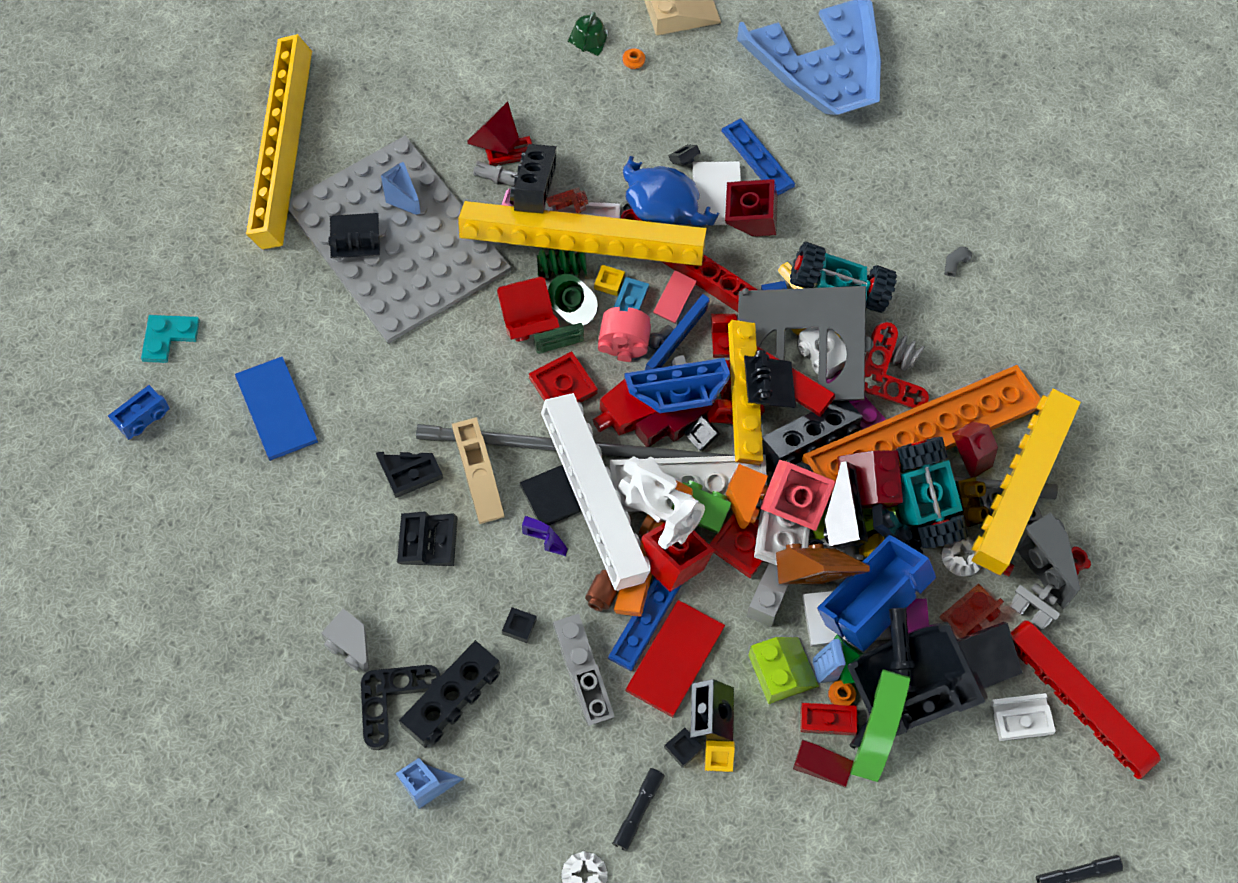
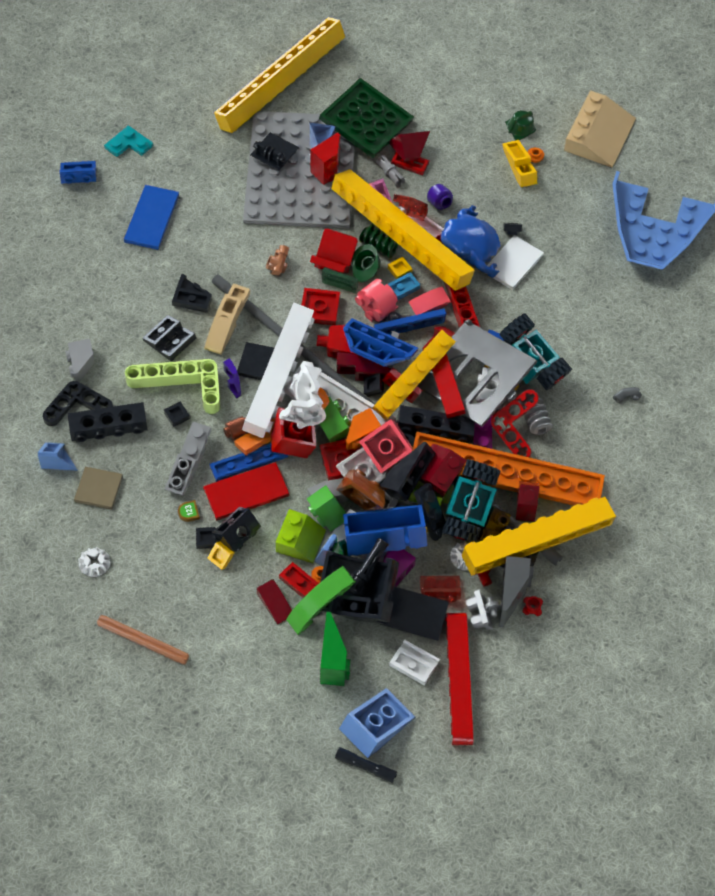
camera: 40 degrees right, 5 degrees down
(422, 130) = (366, 117): none -> dark green plate
(430, 207) = (325, 159): none -> red slope
(471, 364) = (277, 263): none -> nougat plate
(486, 576) = (180, 376): none -> yellowish green beam
(508, 781) = (98, 488): none -> dark tan tile
(534, 178) = (404, 181): black brick -> none
(579, 170) = (440, 196): none -> dark purple head
(628, 77) = (520, 163): none -> yellow slope
(635, 730) = (188, 511): none -> tile
(646, 794) = (141, 555): black piece -> none
(752, 207) = (524, 281): dark red slope -> none
(757, 155) = (559, 258): blue tile -> none
(769, 381) = (431, 376): black hinge -> none
(791, 613) = (327, 508): none -> bright green brick
(946, 777) = (334, 661): none -> green slope
(1049, 817) = (376, 722): none -> medium blue slope

